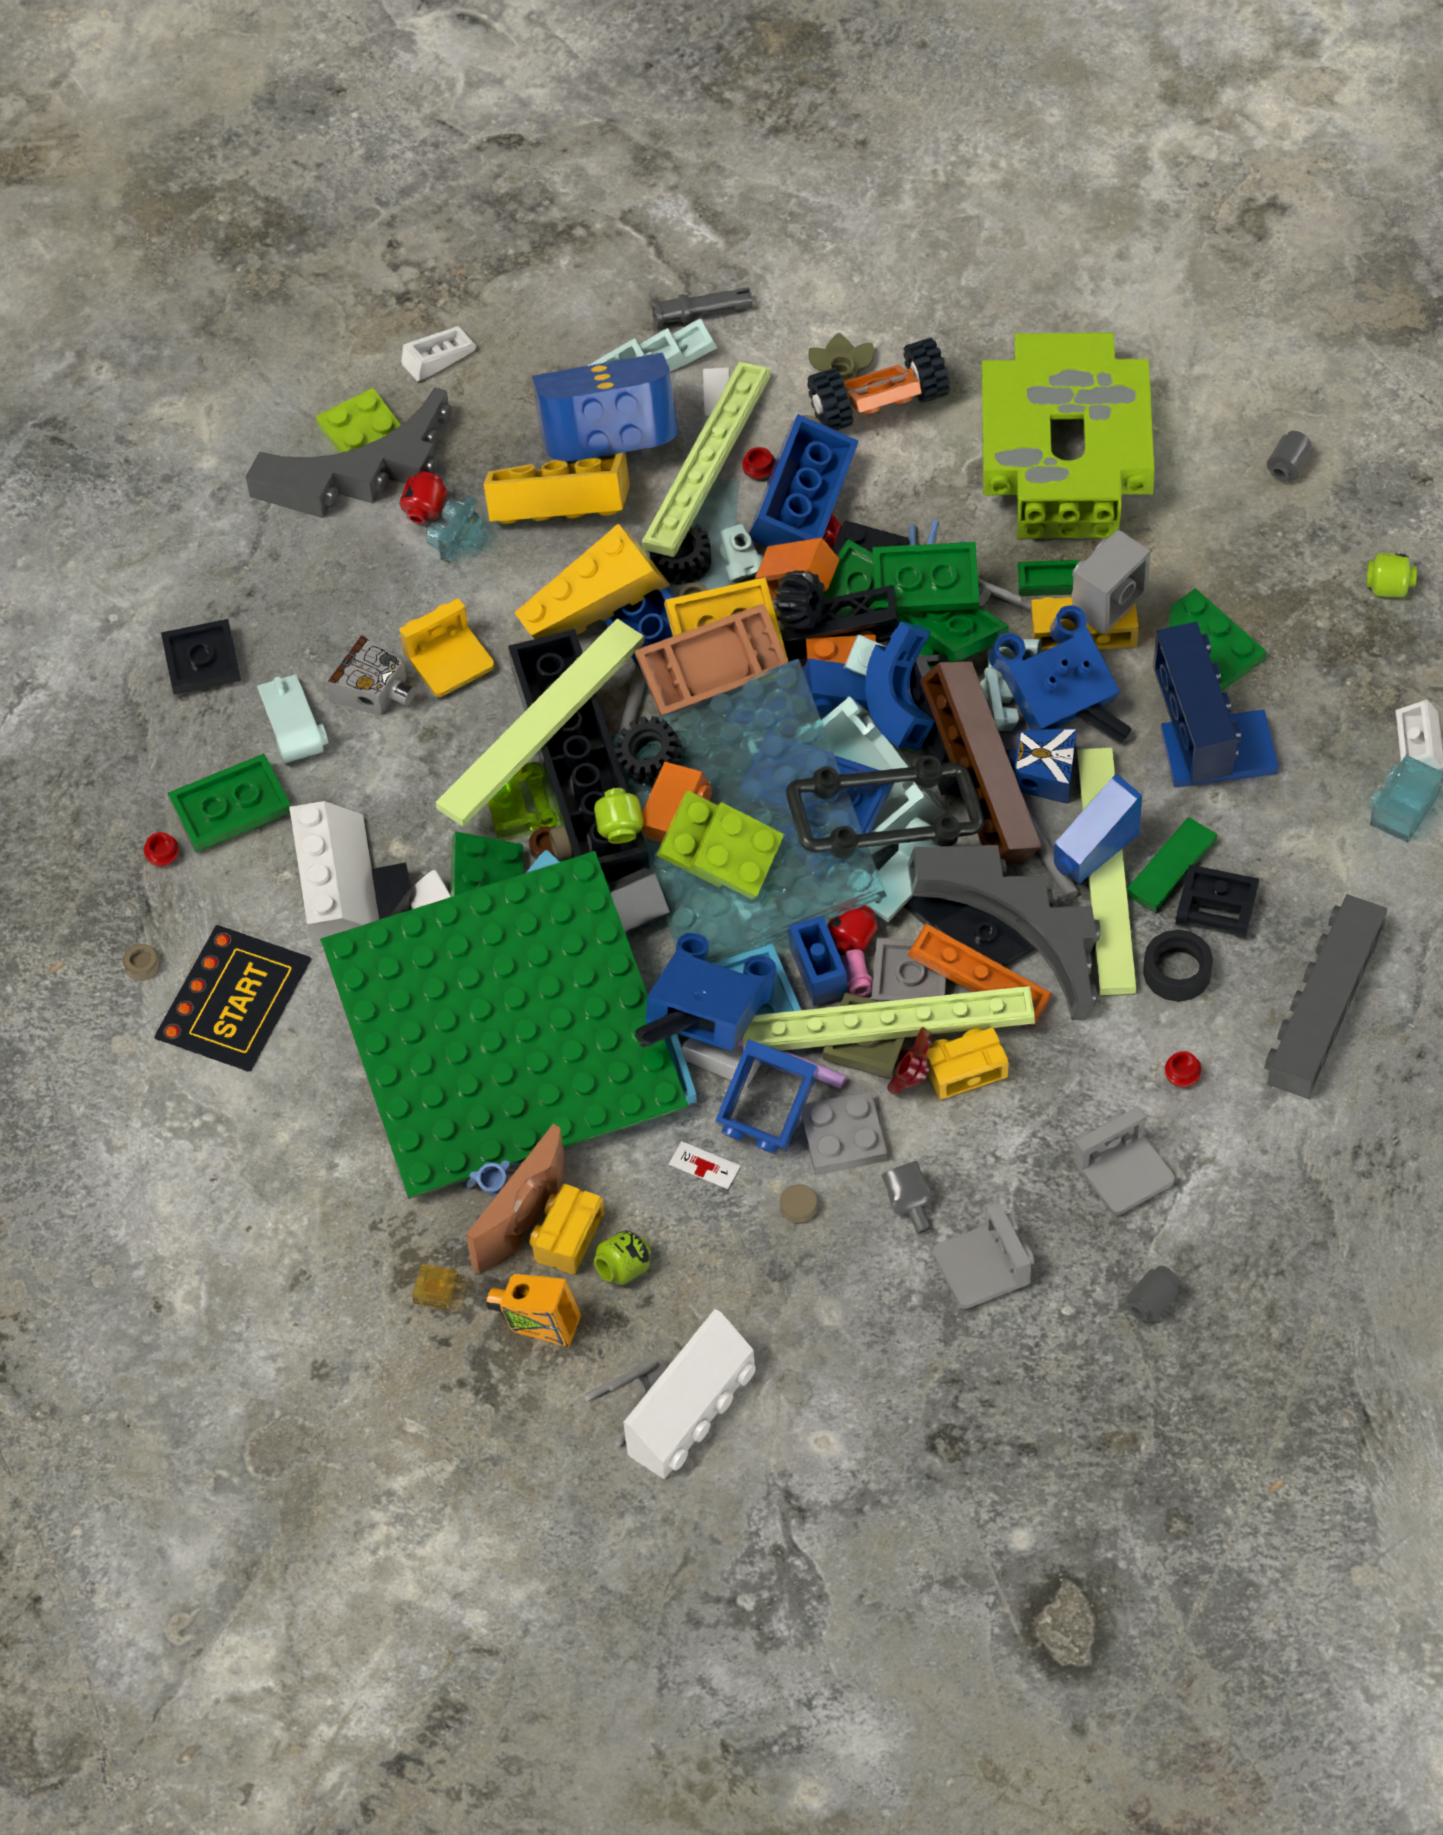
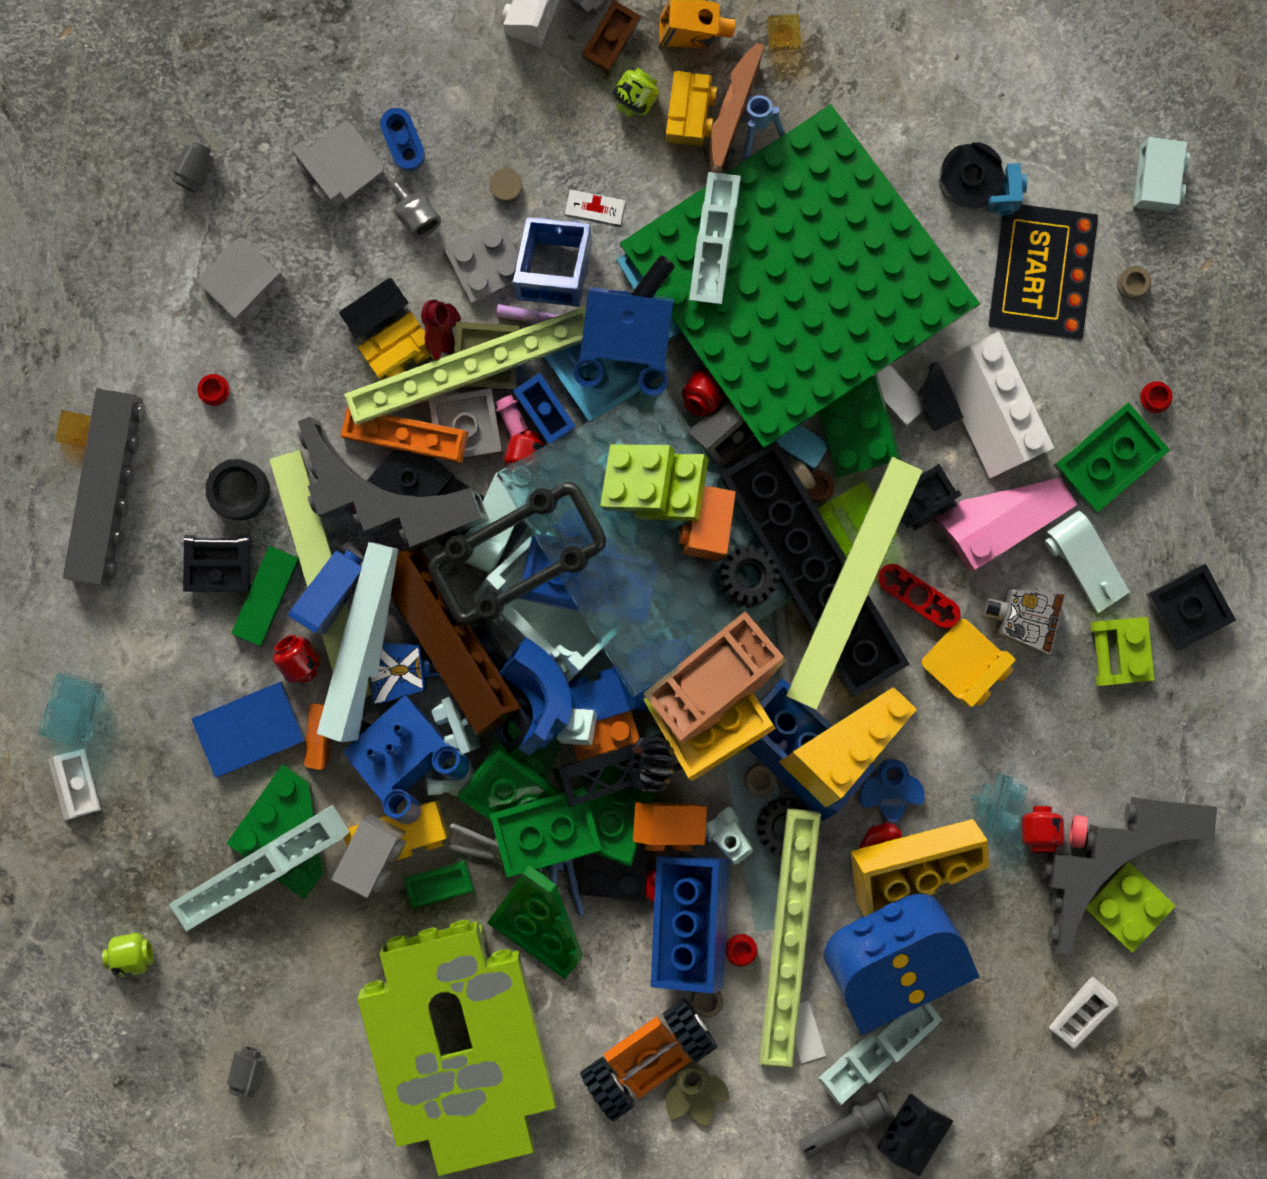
camera: 165 degrees right, 30 degrees up
(74, 1050) = (1161, 174): none -> light aqua brick
(236, 1072) = (1014, 186): none -> dark azure bracket
(274, 635) = (1132, 651): none -> lime plate
(279, 1117) = (954, 181): none -> black plate
(369, 767) = (997, 521): none -> bright pink wedge
(388, 491) = (1078, 831): none -> coral tile
(420, 803) = (931, 494): none -> black bracket
(471, 710) = (933, 615): none -> red beam
(552, 563) = (891, 795): none -> blue plate
(582, 1066) = (715, 238): none -> light aqua slope
(589, 529) = (880, 834): none -> red arm
(618, 816) = (753, 490): lime head -> none
(632, 1326) = (611, 36): none -> reddish brown plate
(637, 286) = (914, 1135): none -> black bracket
(645, 944) = (702, 393): none -> red head
(903, 1274) = (402, 141): none -> blue plate
(957, 514) = (538, 922): none -> green plate
(979, 1098) = (373, 308): none -> black bracket
(1075, 774) = (360, 646): none -> light aqua slope
(1145, 725) = (317, 746): none -> orange slope
(1156, 791) = (296, 659): none -> red head
(1196, 702) = (267, 747): dark blue brick -> none
(1235, 612) = (260, 868): none -> light aqua slope
(1348, 1065) = (73, 428): none -> clear yellow plate

